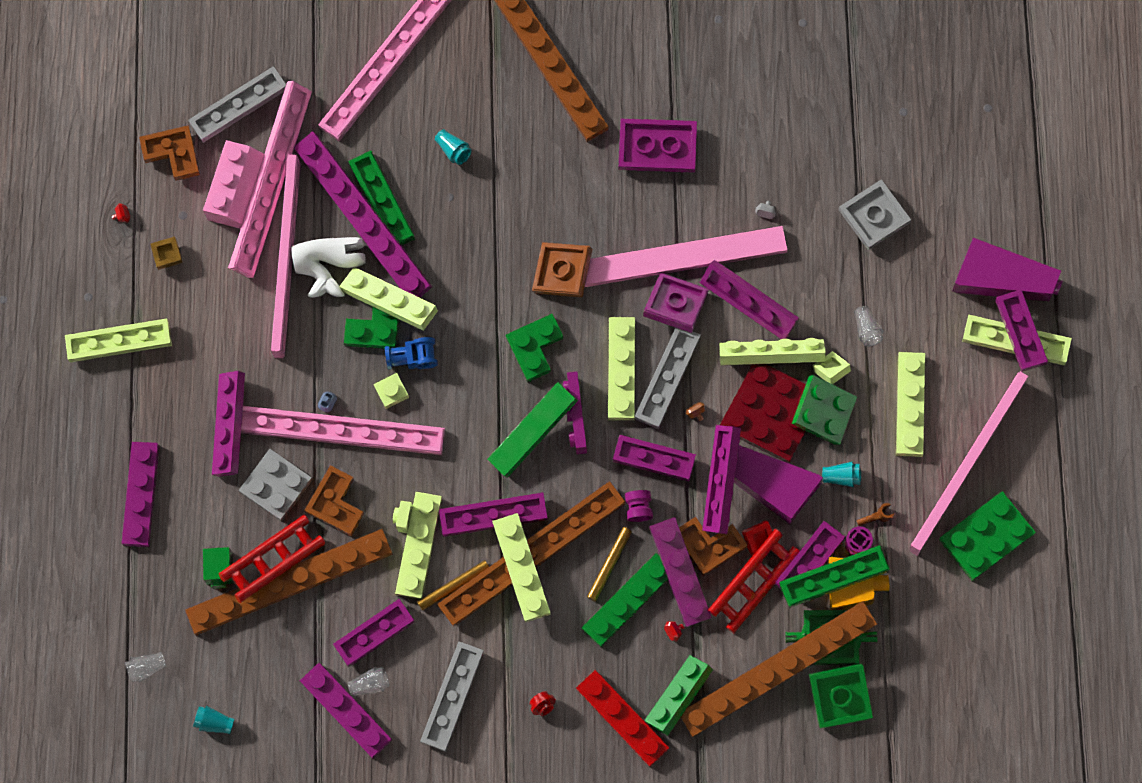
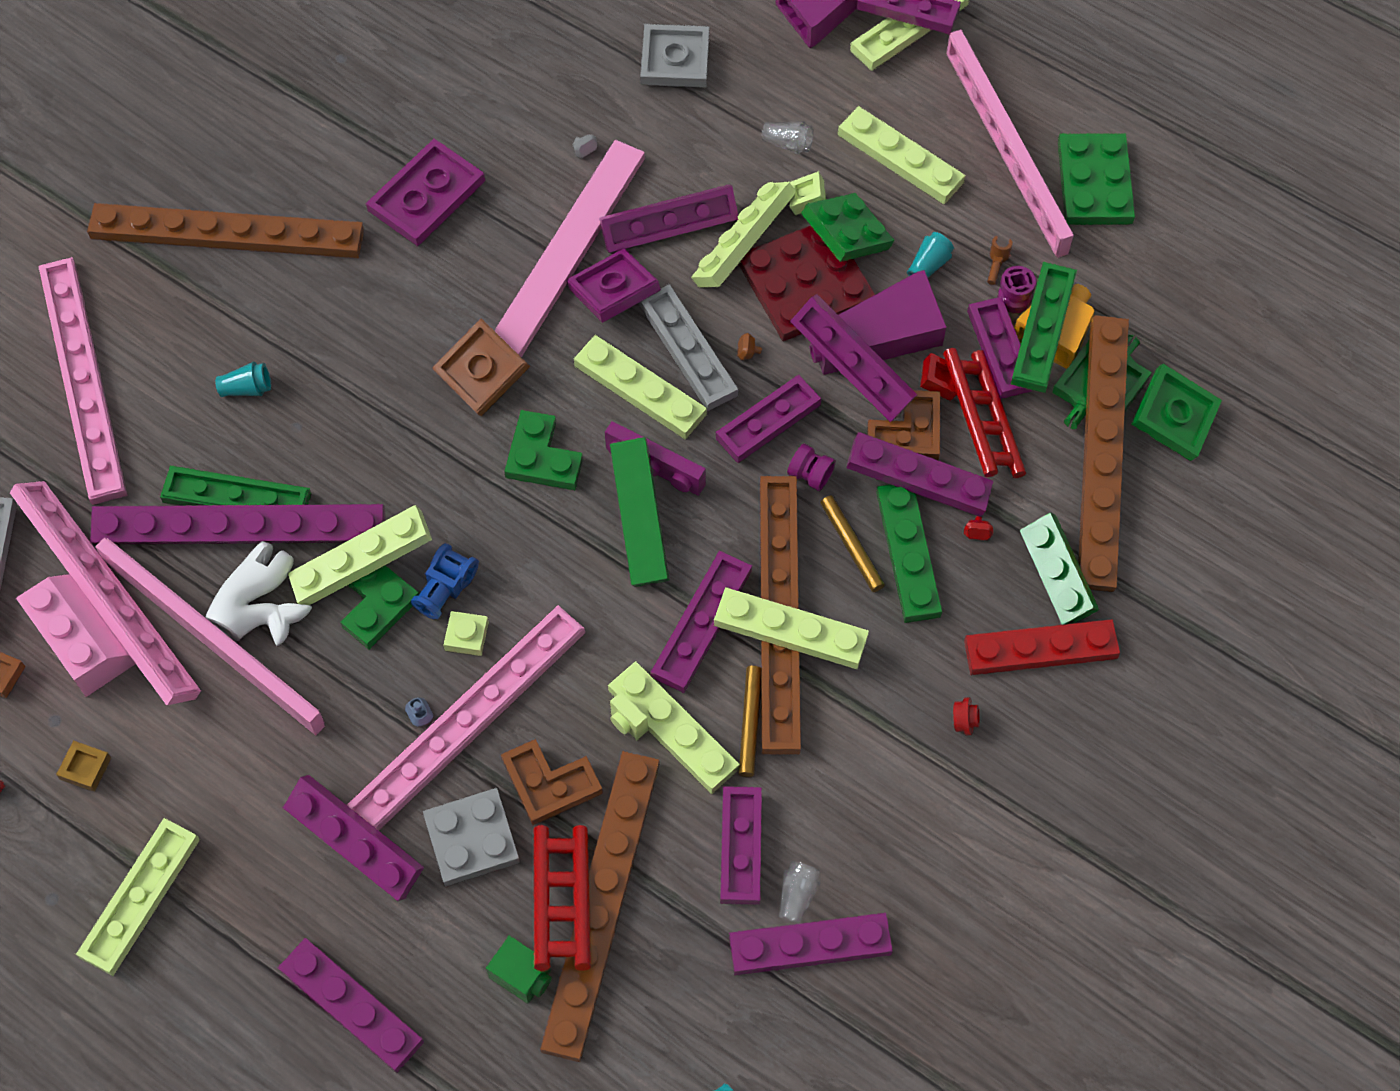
camera: 60 degrees left, 10 degrees down
(452, 696) = (884, 809): light grey plate -> none

